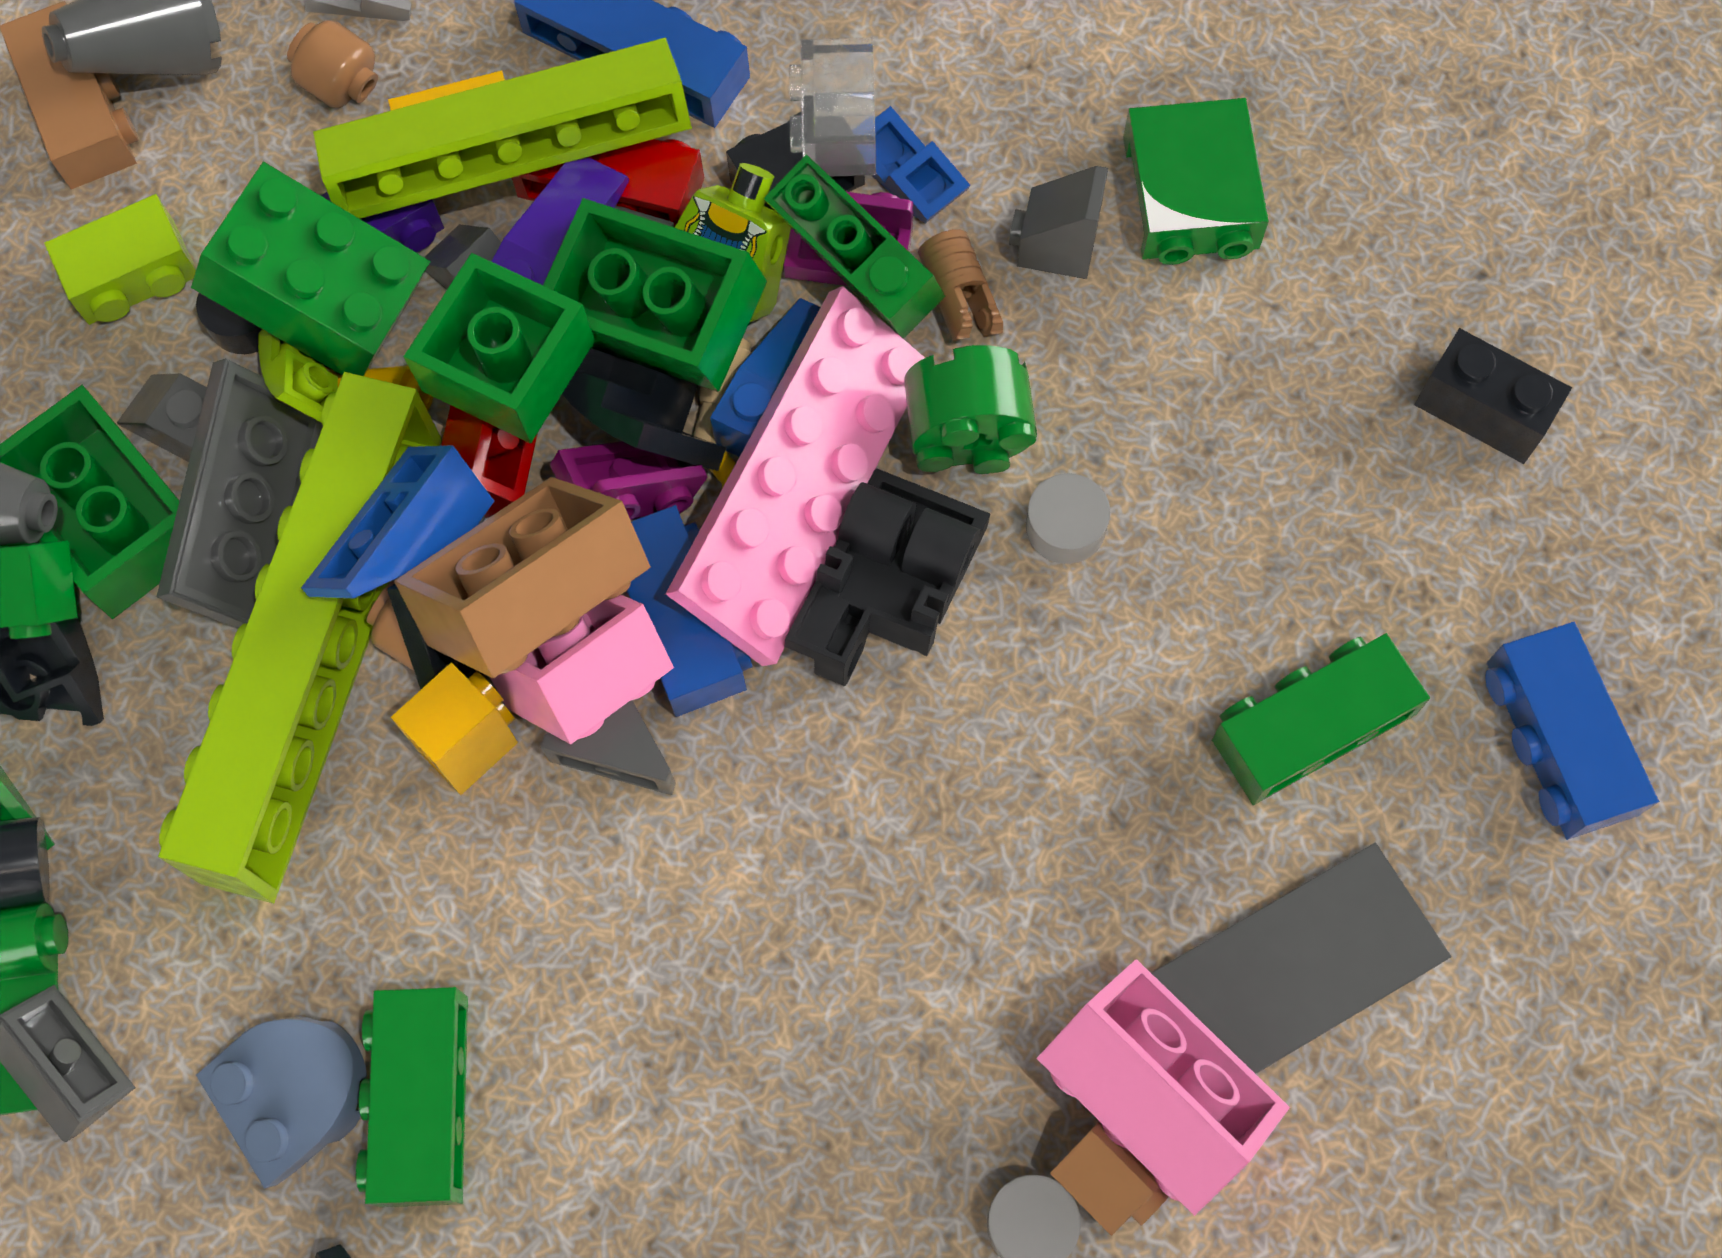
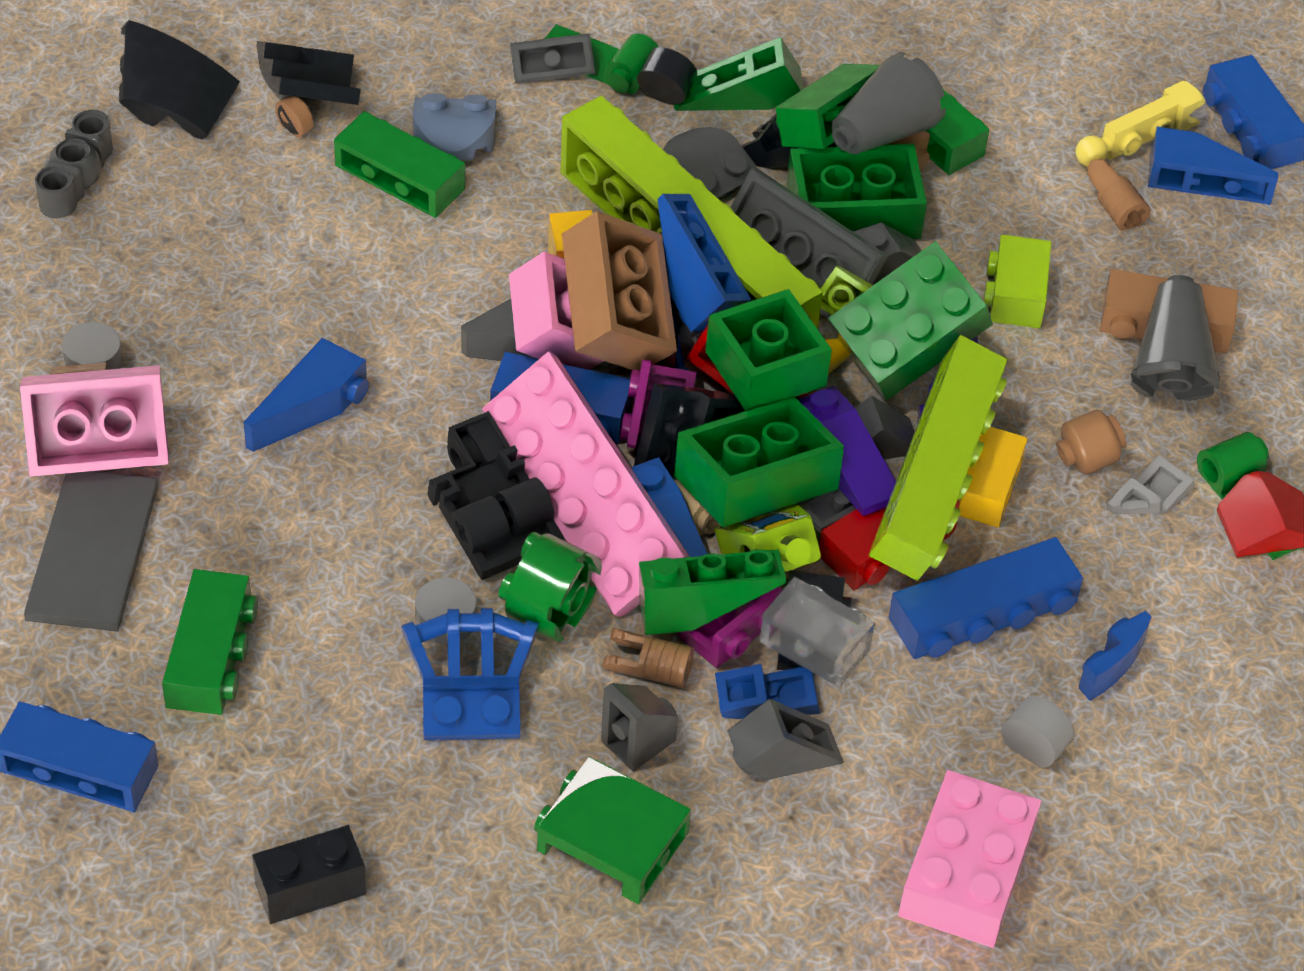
camera: 120 degrees right, 20 degrees down
(145, 723) = (713, 158): none -> dark grey slope
(879, 891) = (310, 394): none -> blue slope
(969, 101) = (782, 742): none -> dark grey slope
(1154, 402) = (474, 704): none -> blue plate

